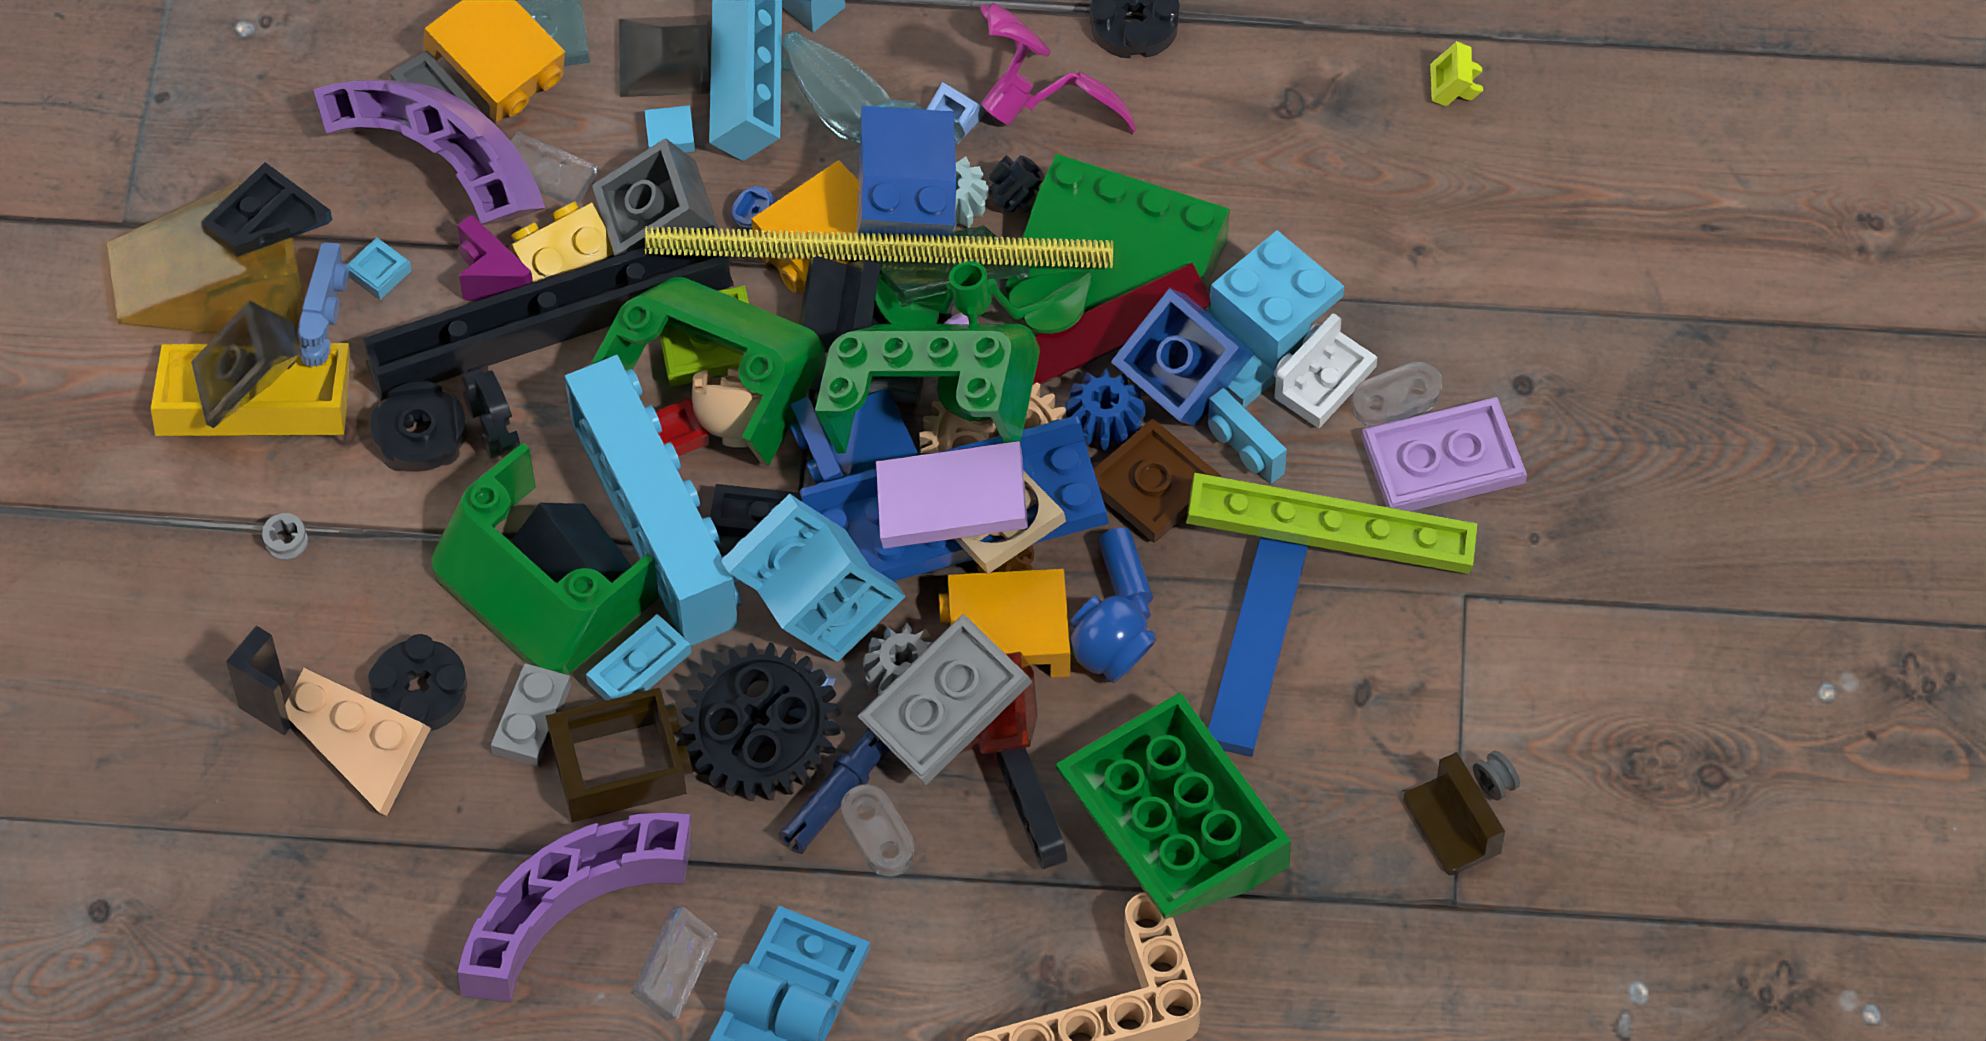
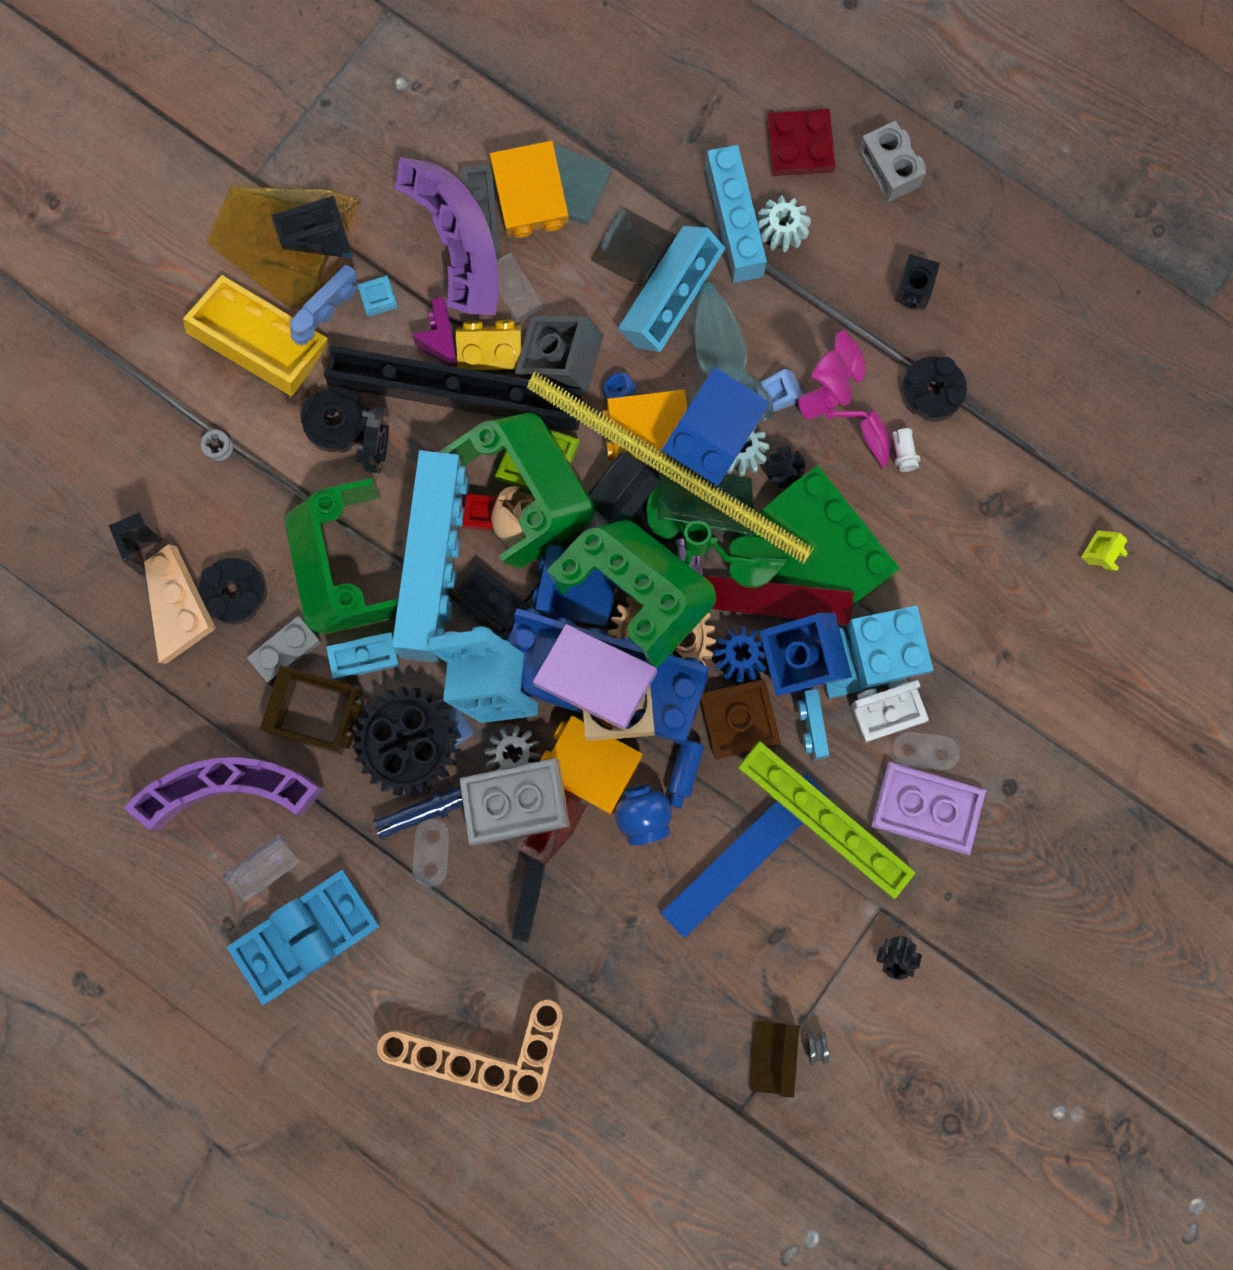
camera: 30 degrees right, 20 degrees up
(243, 360) = (250, 321): clear smoke slope -> none
(569, 539) = (368, 557): black slope -> none
(670, 123) = (603, 302): medium azure tile -> none
(1155, 103) = (905, 450): none -> white pin
(1177, 809) = (604, 958): green slope -> none
(1515, 611) = (899, 958): none -> black gear

